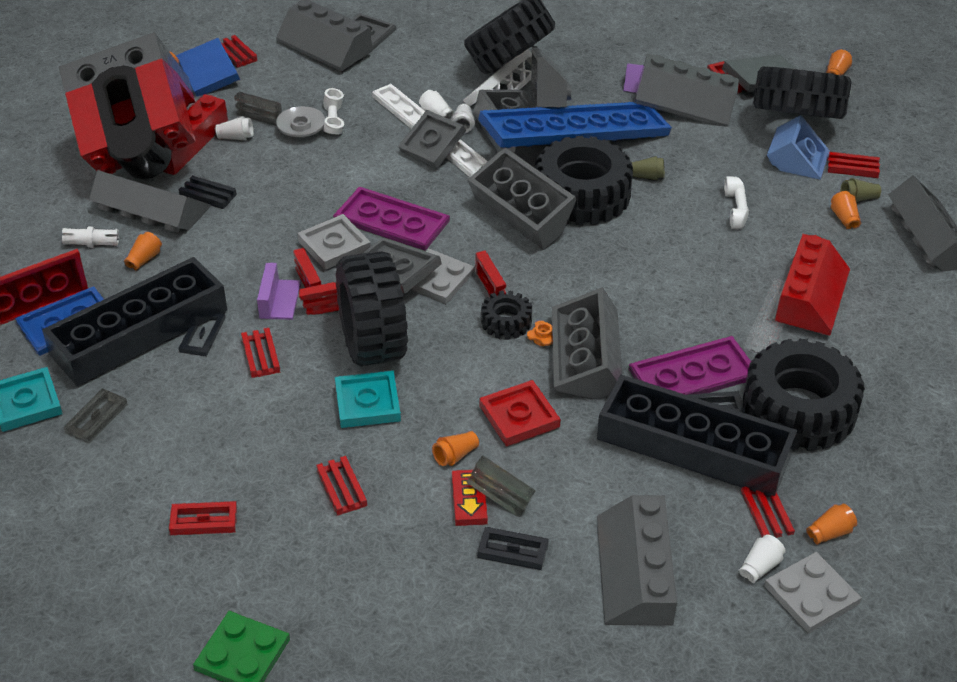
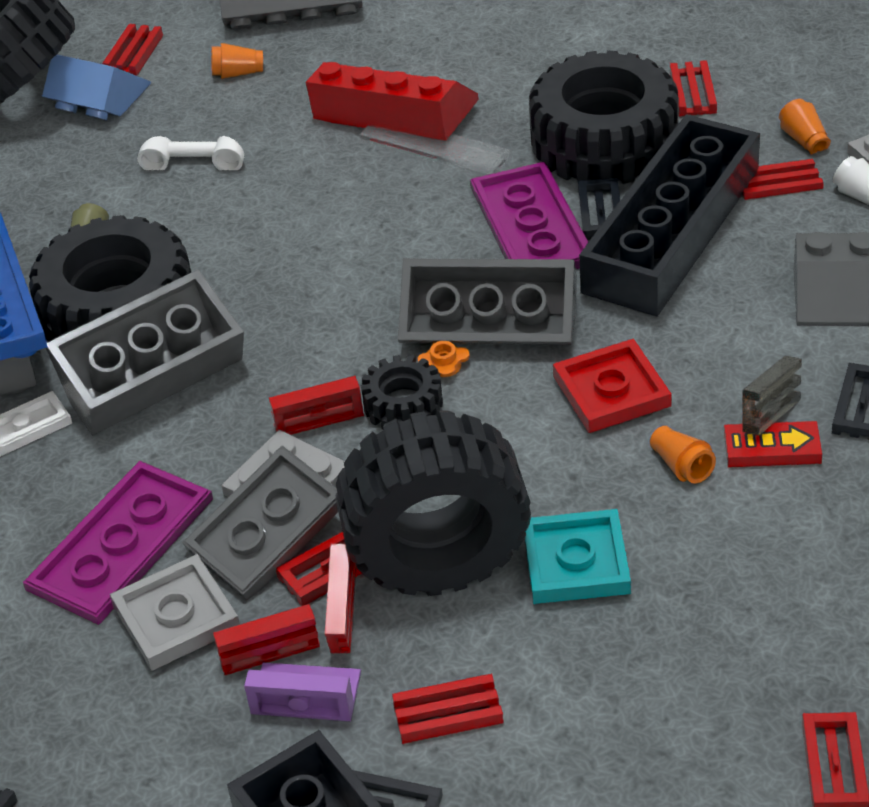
camera: 80 degrees left, 0 degrees up
(334, 468) = (751, 580): red tile -> none
(861, 189) = (196, 48): olive cone -> none
(876, 455) = (690, 73): none -> red tile

